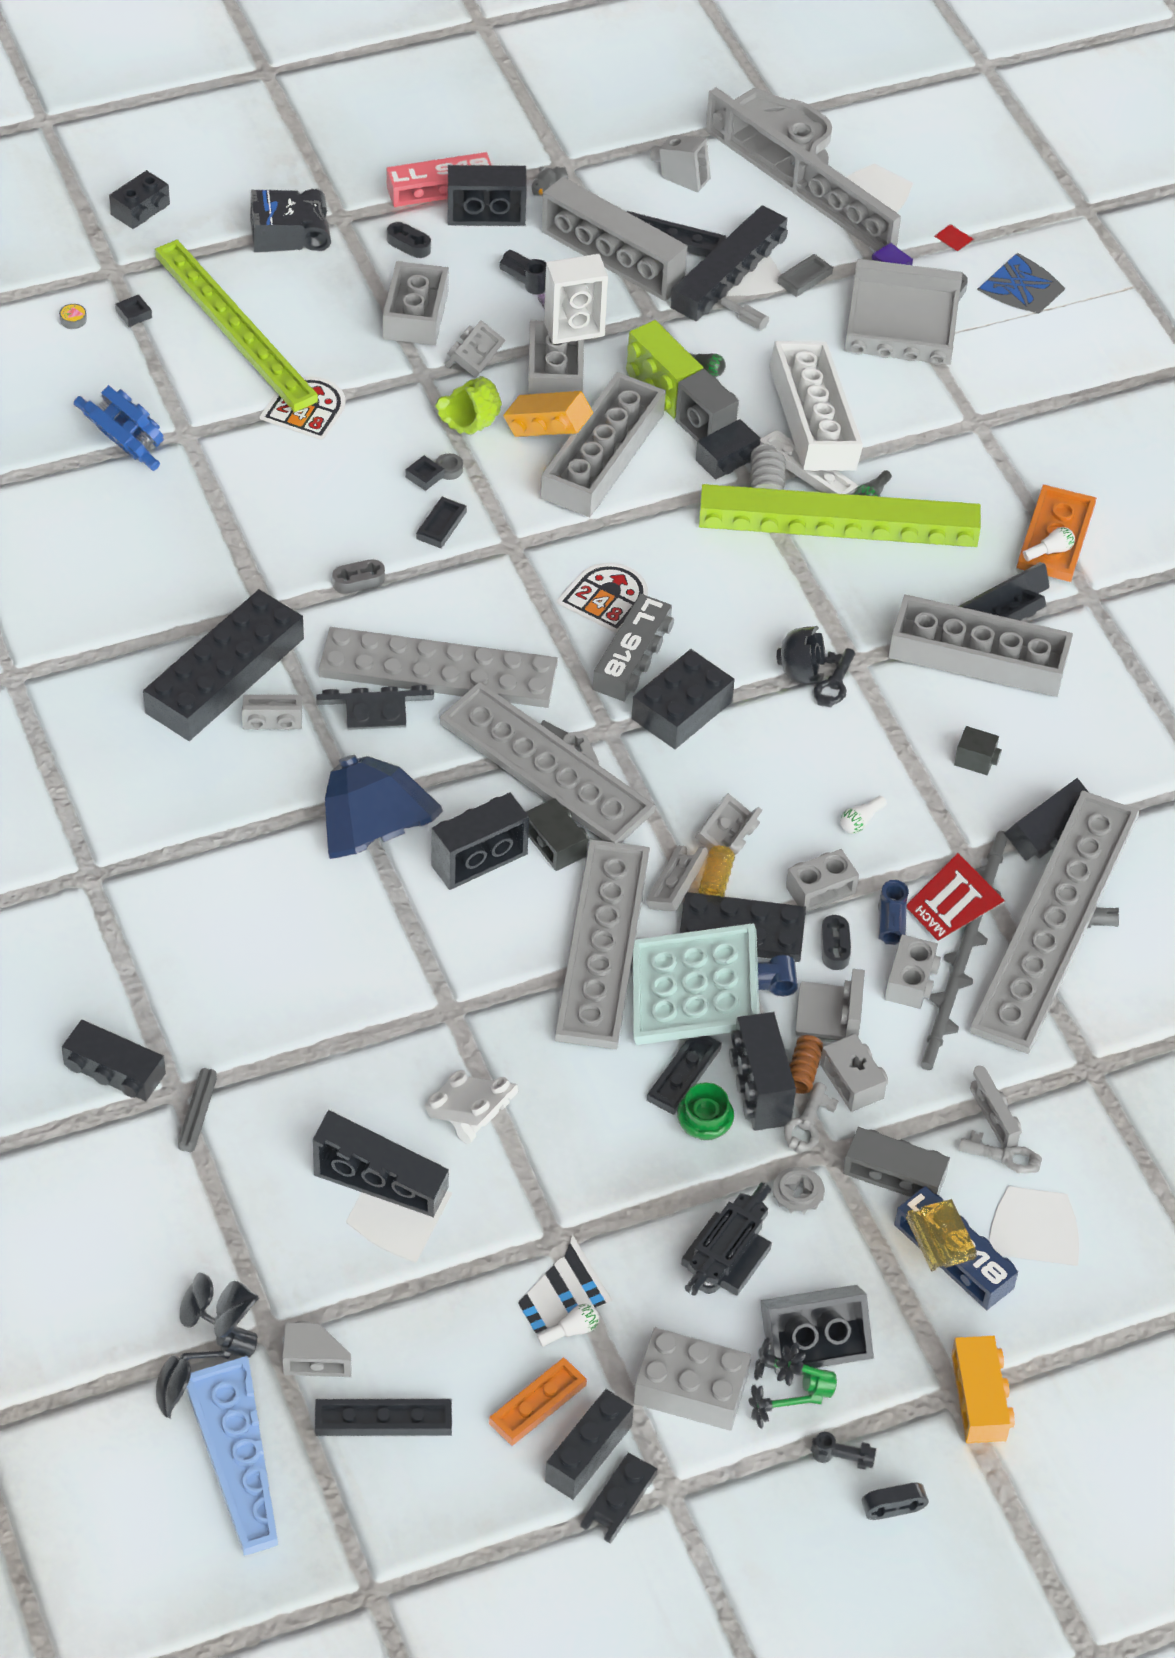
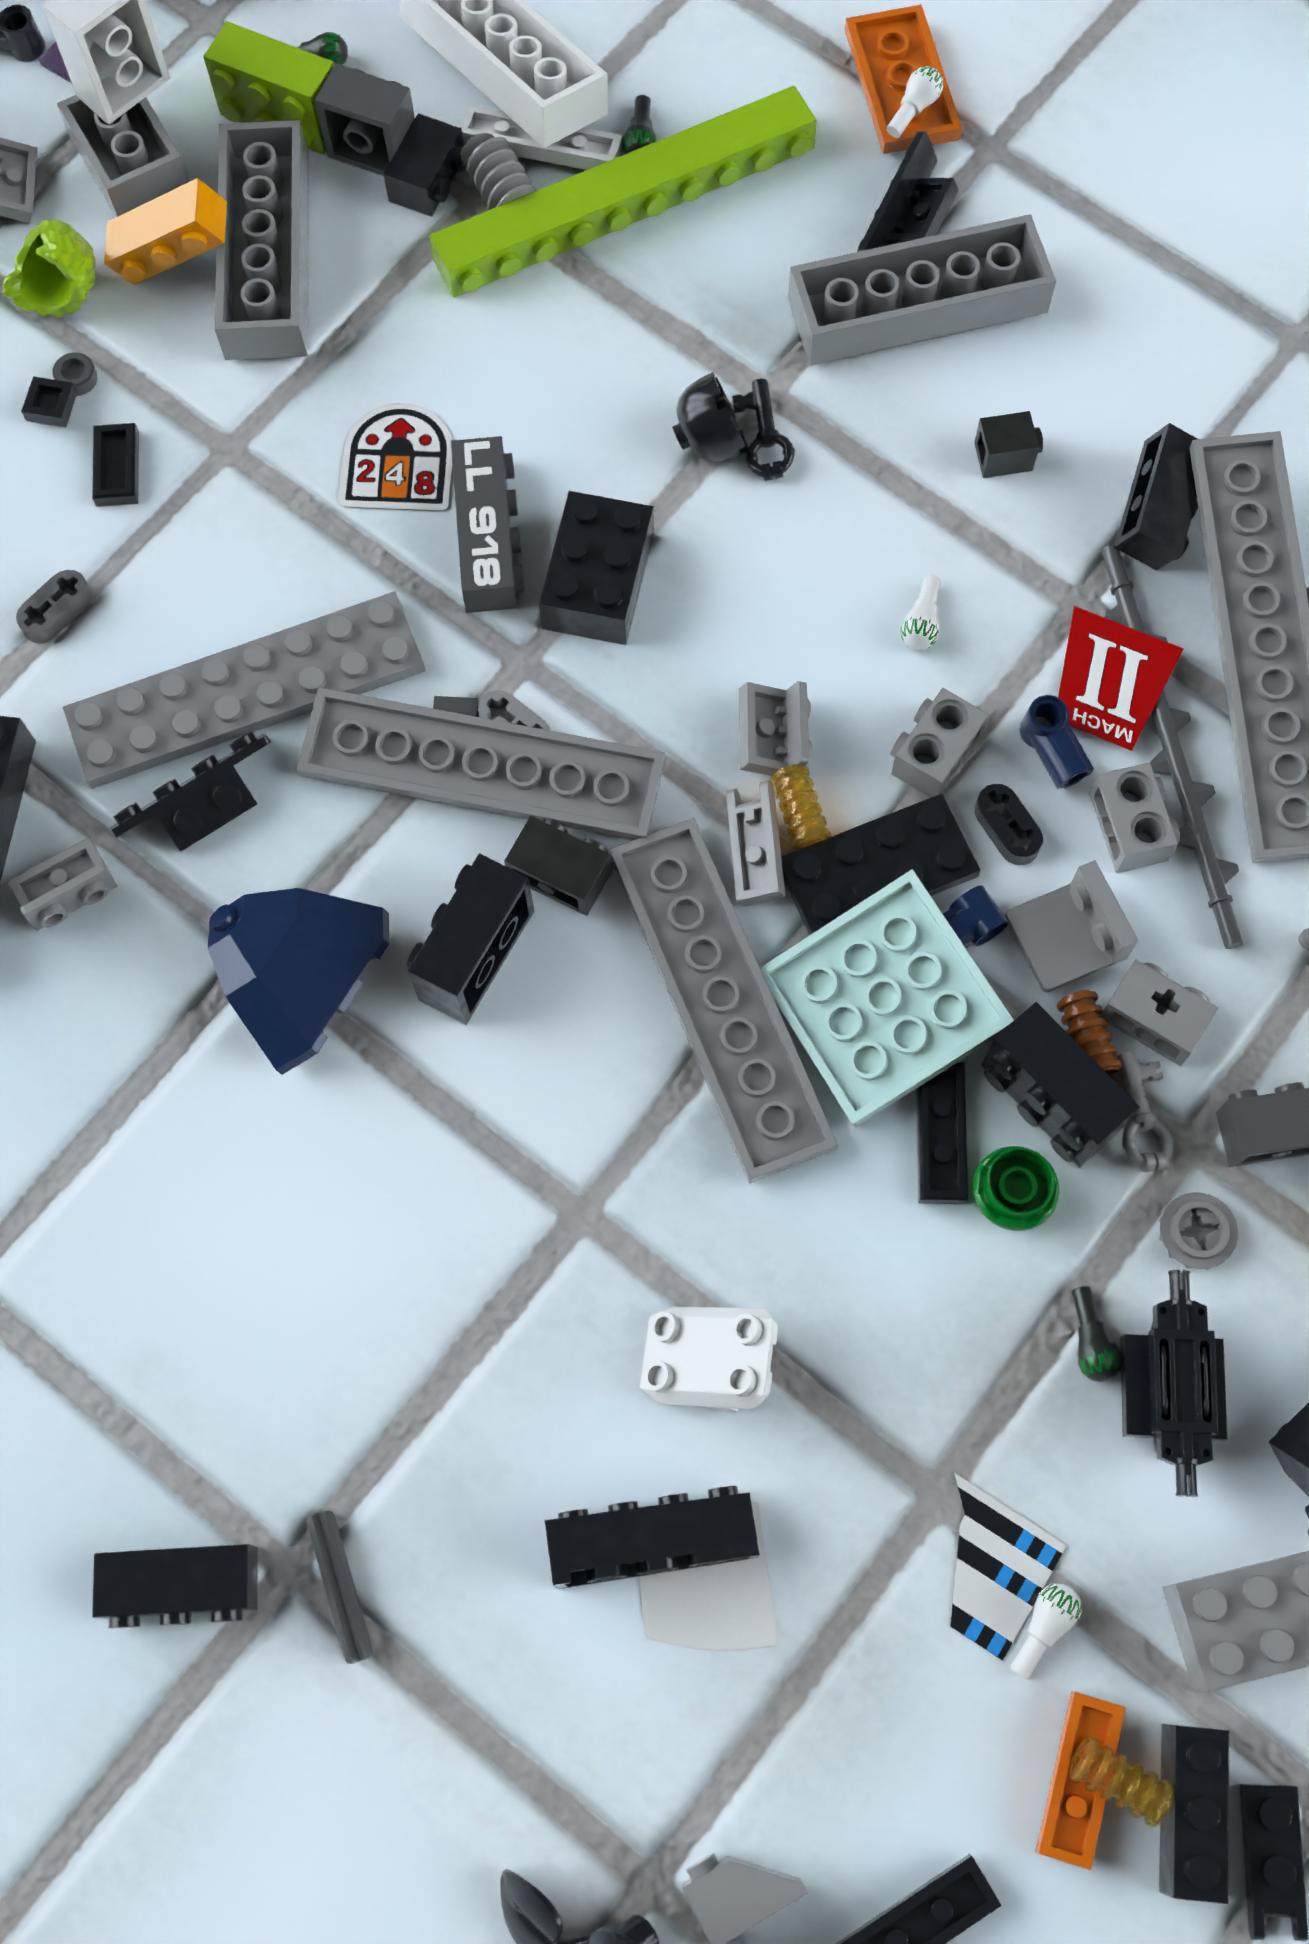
camera: 25 degrees left, 20 degrees up
(557, 1400) = (1121, 1781): none -> clear yellow piece
(695, 1214) = (1097, 1352): none -> pearl dark grey piece

